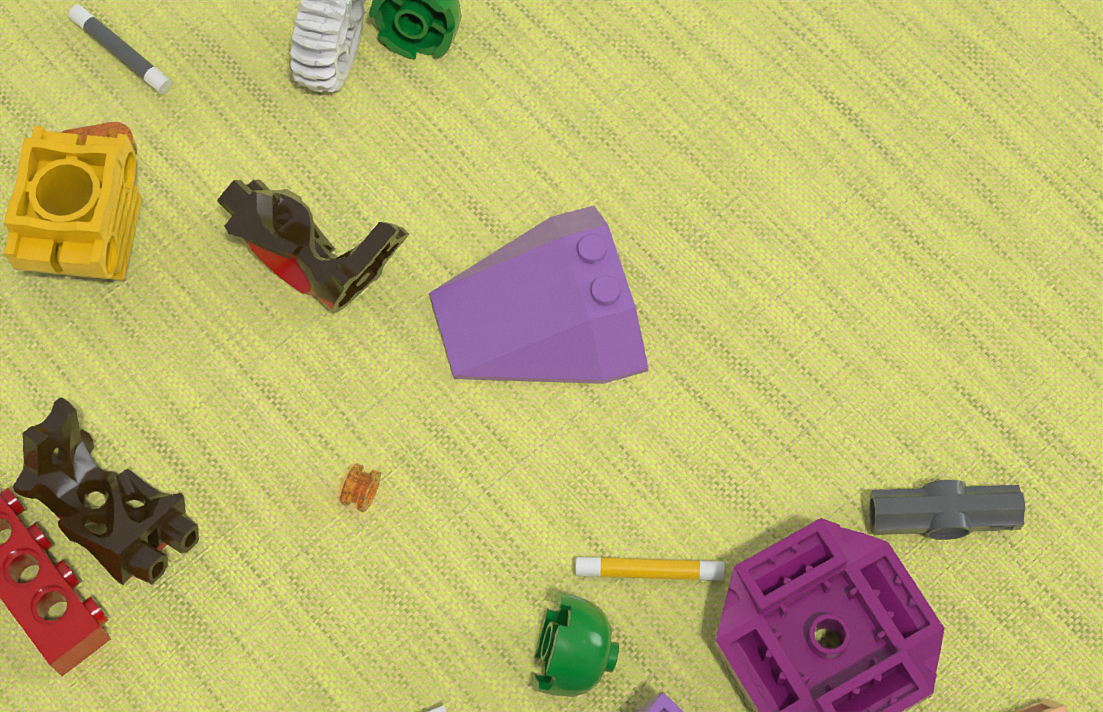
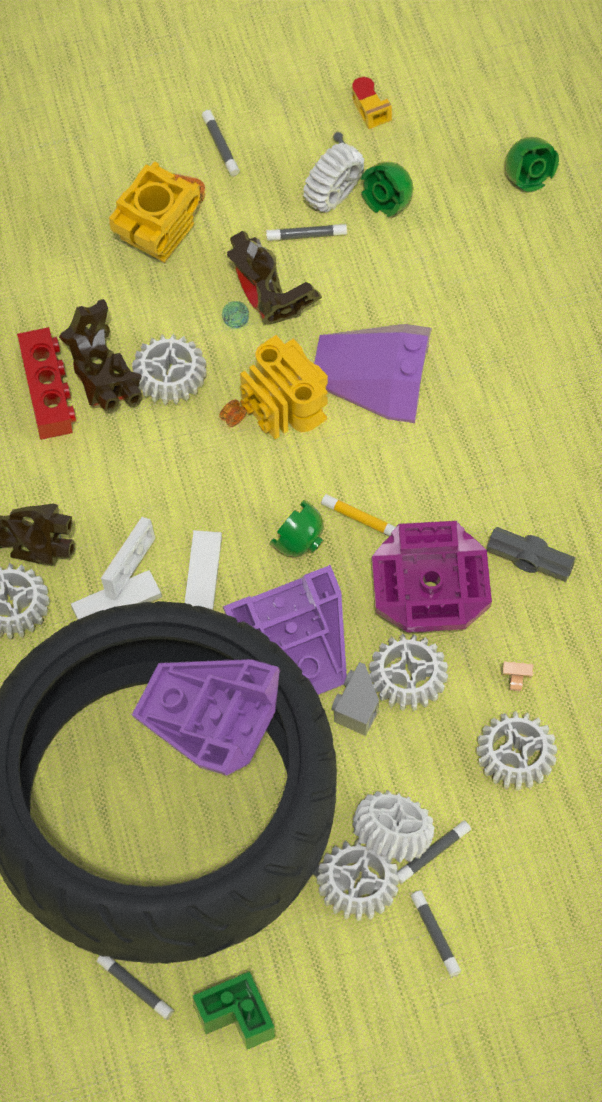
camera: 25 degrees right, 5 degrees down
(237, 452) = (182, 376): none -> white gear
(281, 318) = (235, 314): none -> clear light blue plate
(324, 135) = (306, 232): none -> dark grey bar
(426, 411) = (284, 388): none -> yellow piece

